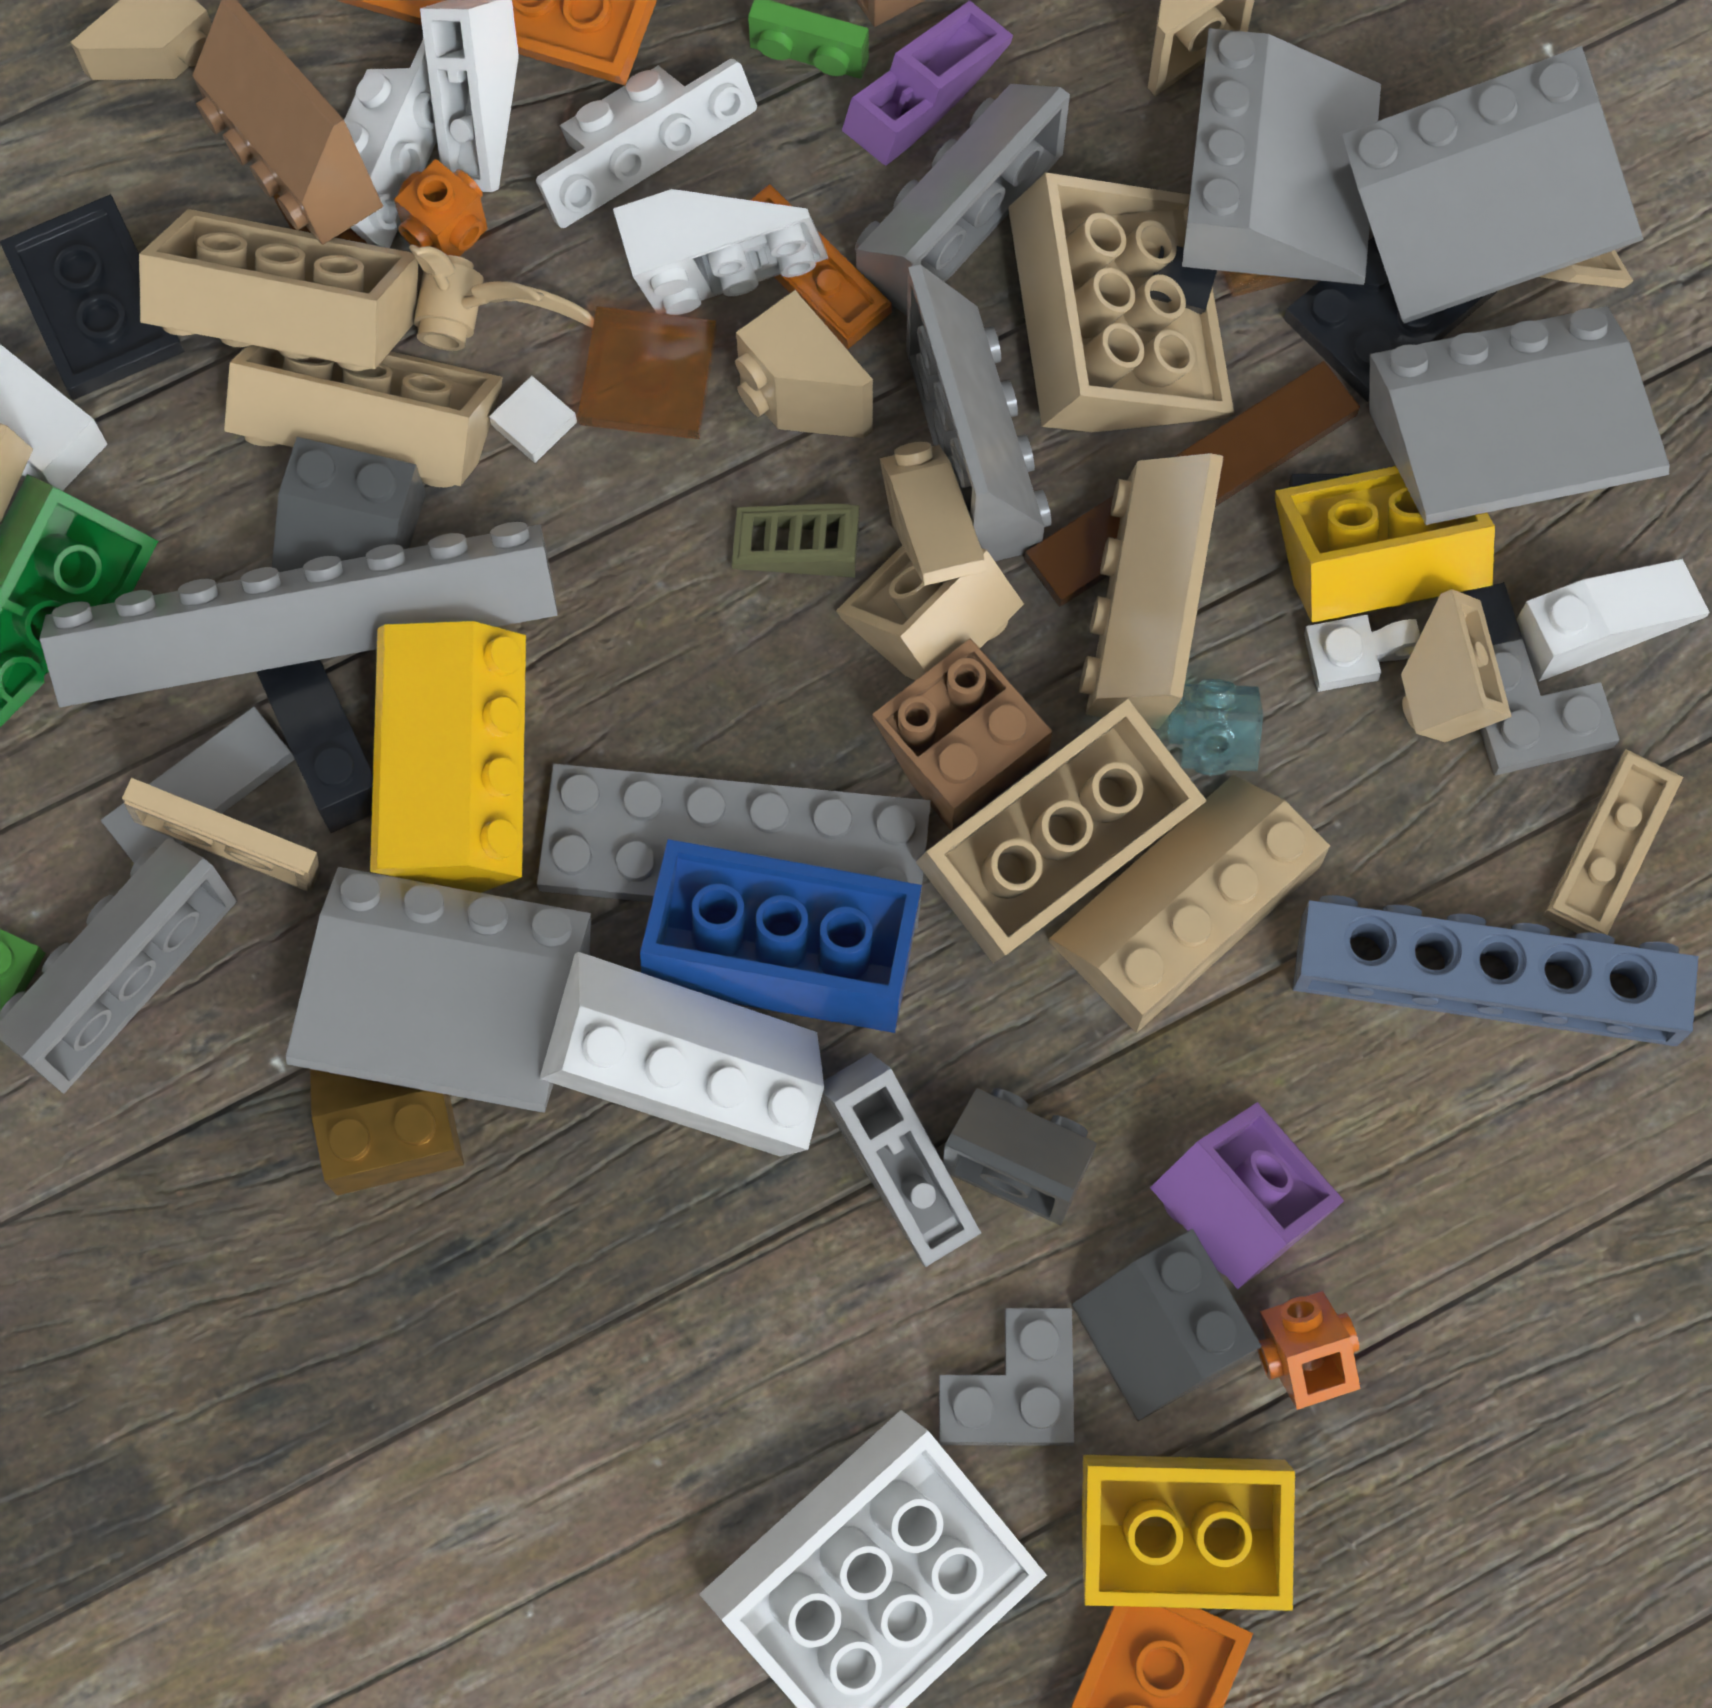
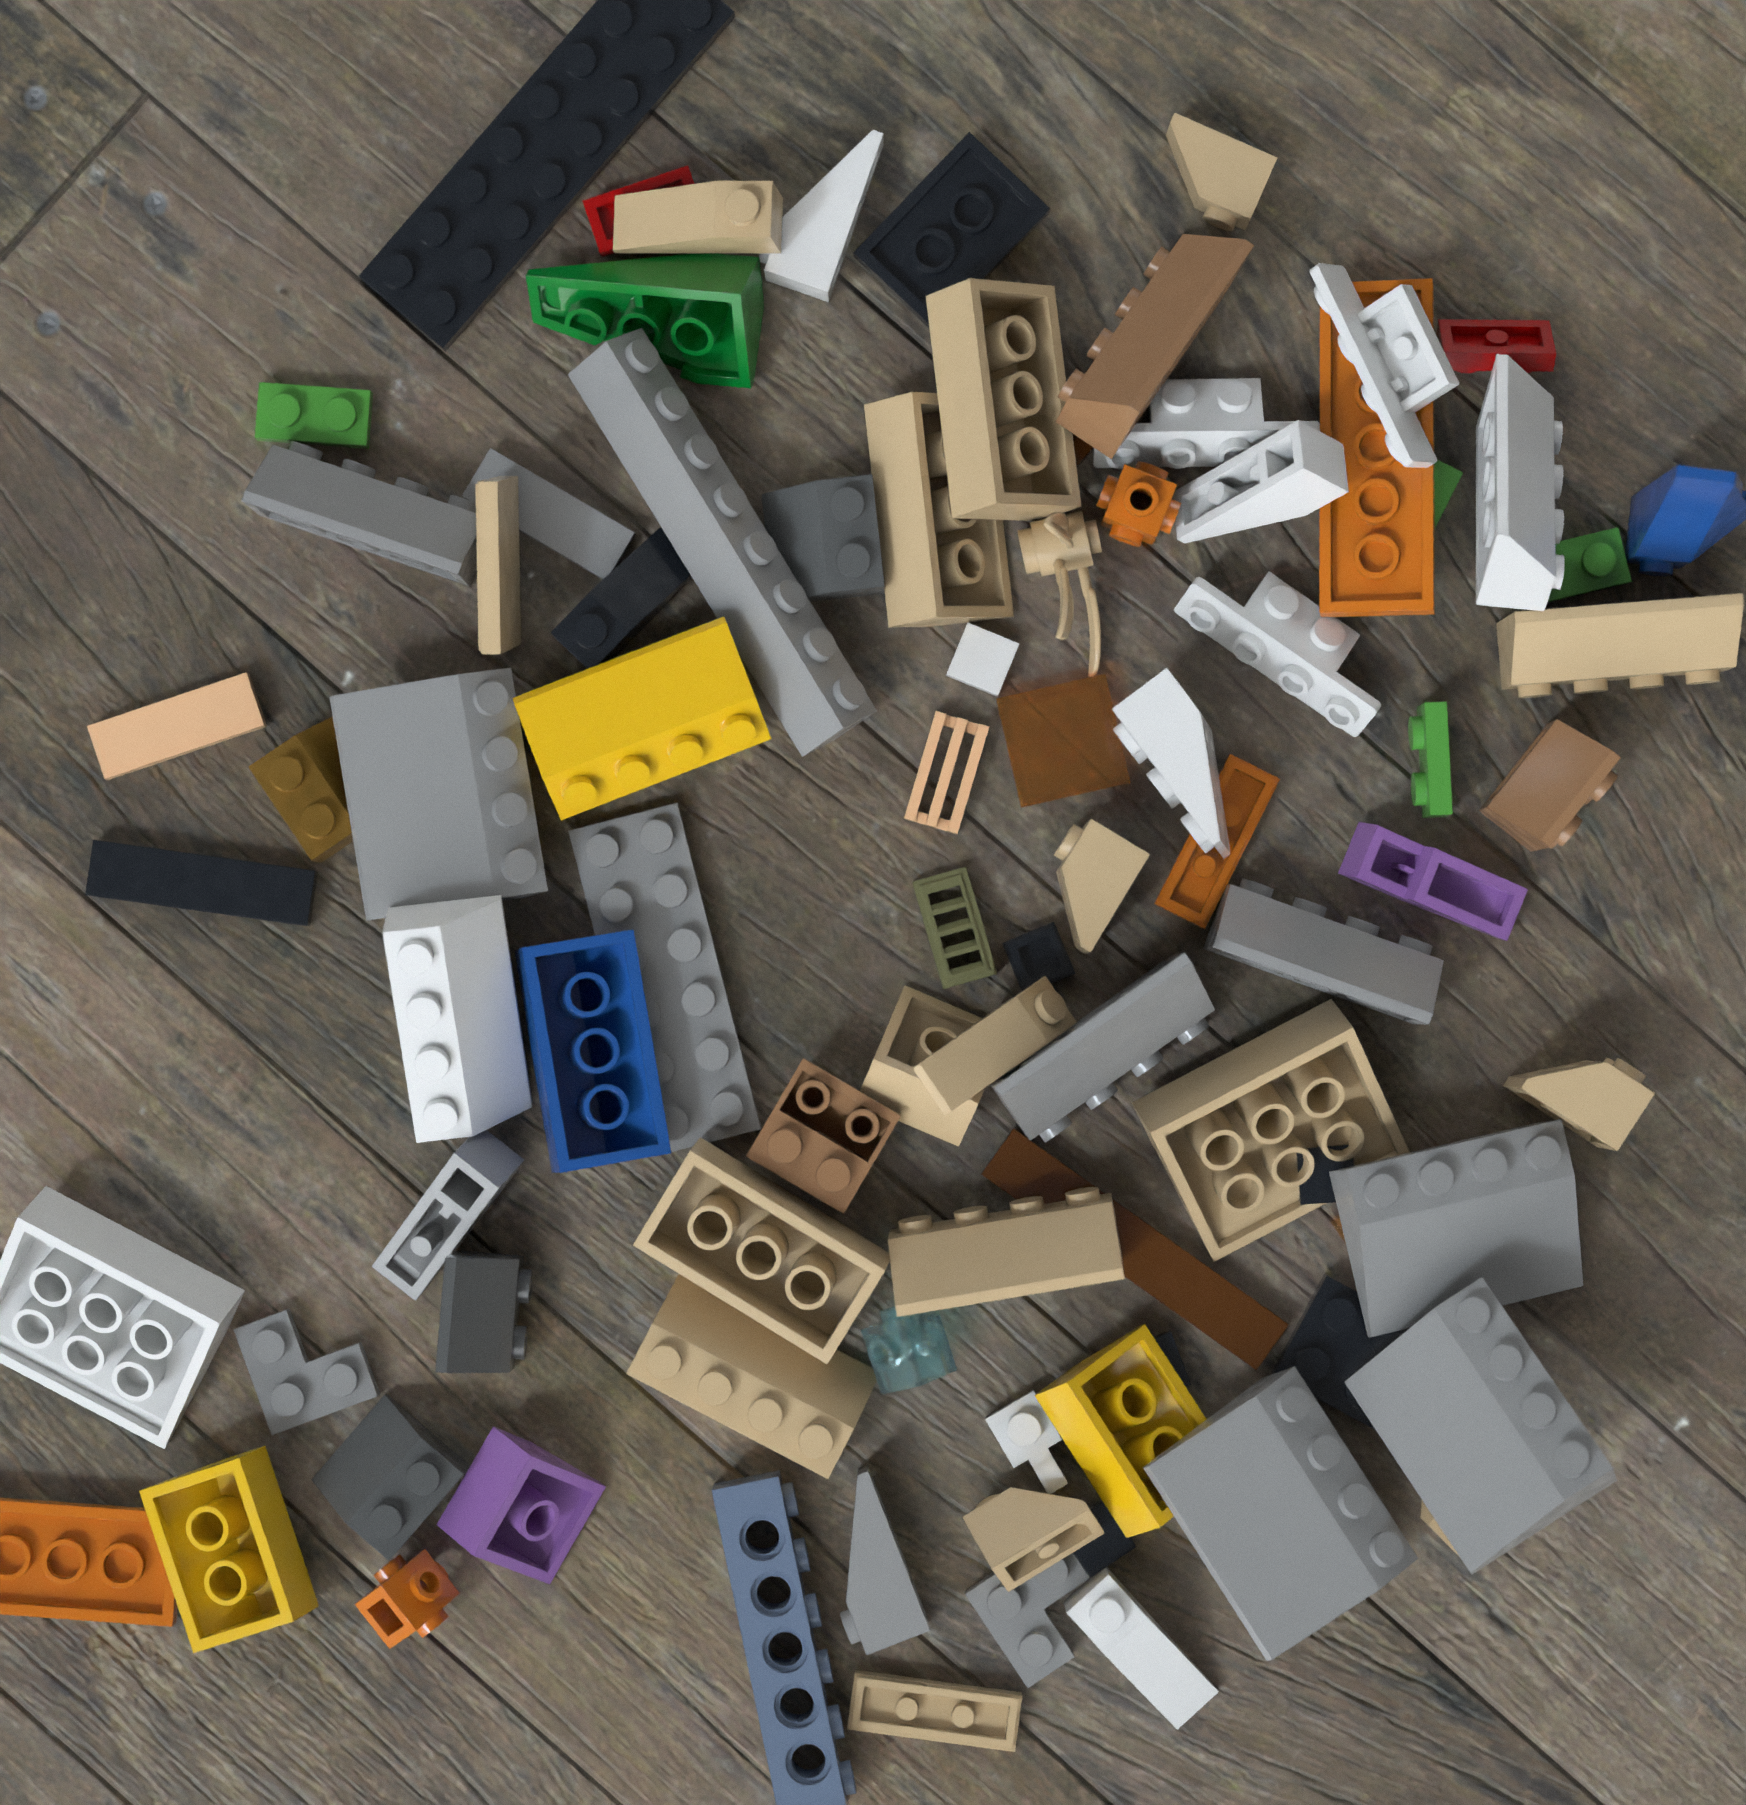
camera: 70 degrees right, 15 degrees up
(249, 1263) = (176, 726): none -> light nougat tile
(431, 1299) = (201, 883): none -> black tile
(595, 463) = (960, 727): none -> light nougat tile
(857, 471) = (1038, 955): none -> black tile
(1453, 847) = (880, 1588): none -> light grey slope

